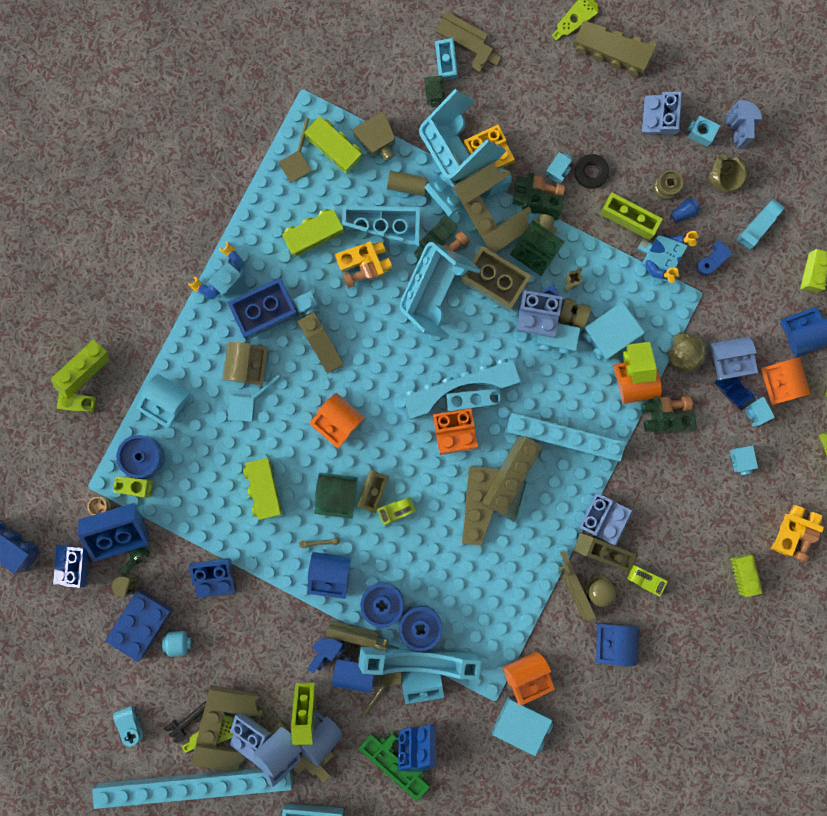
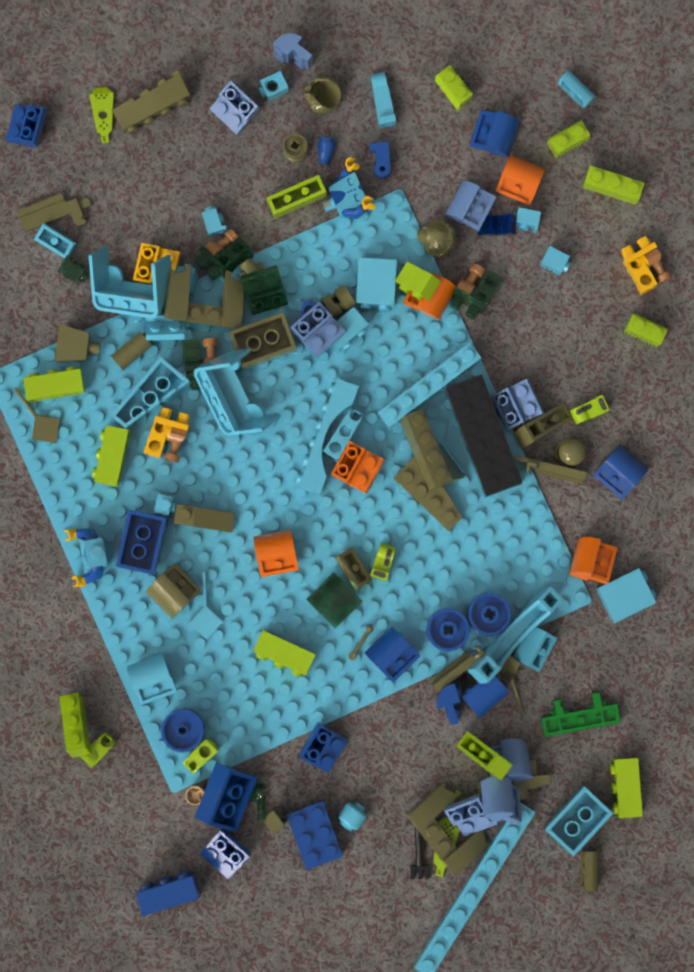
camera: 55 degrees left, 0 degrees up
(128, 724) = (383, 904): medium azure piece -> none
(417, 748) = (580, 689): blue brick -> none
(559, 511) = (483, 436): none -> black brick
(573, 279) = (311, 281): olive piece -> none
(600, 163) = (236, 210): black tyre -> none

